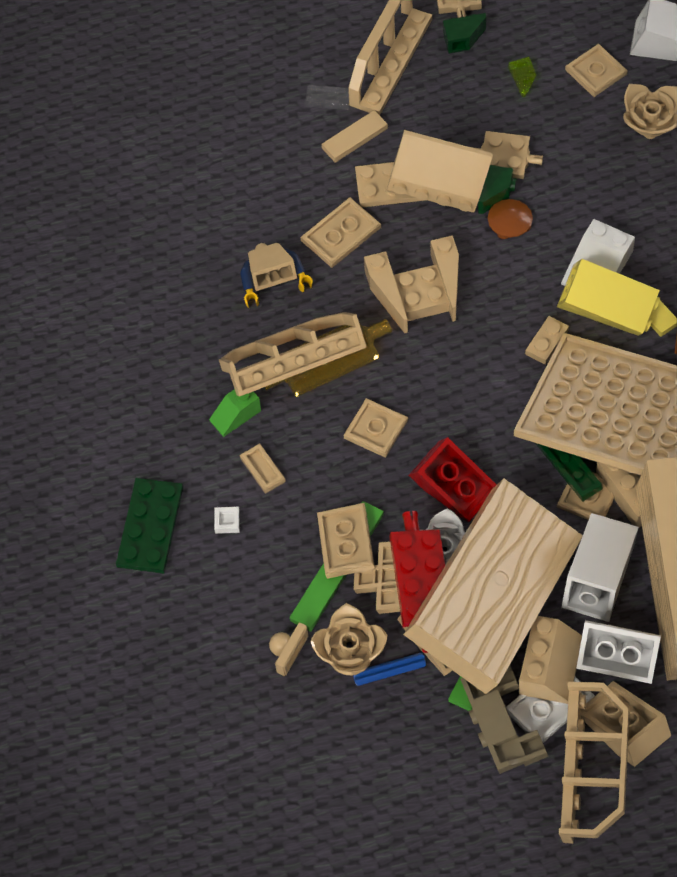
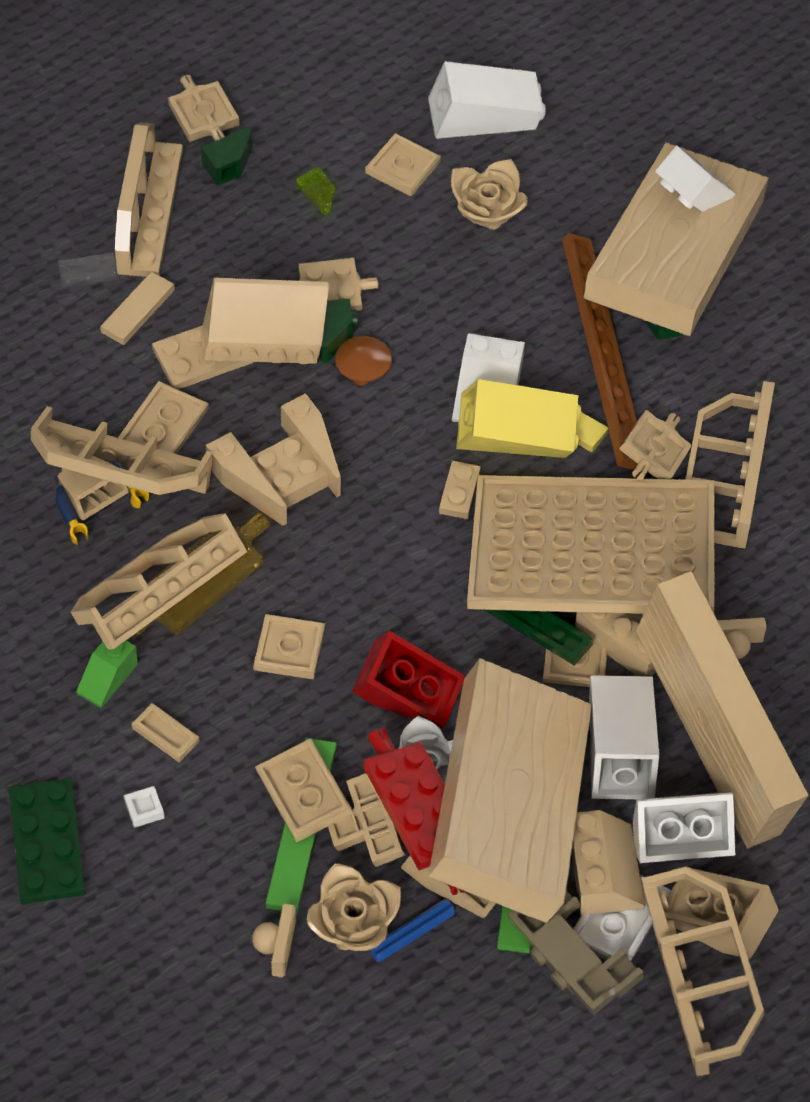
camera: 25 degrees left, 5 degrees down
(337, 271) = (145, 465): none -> tan plate

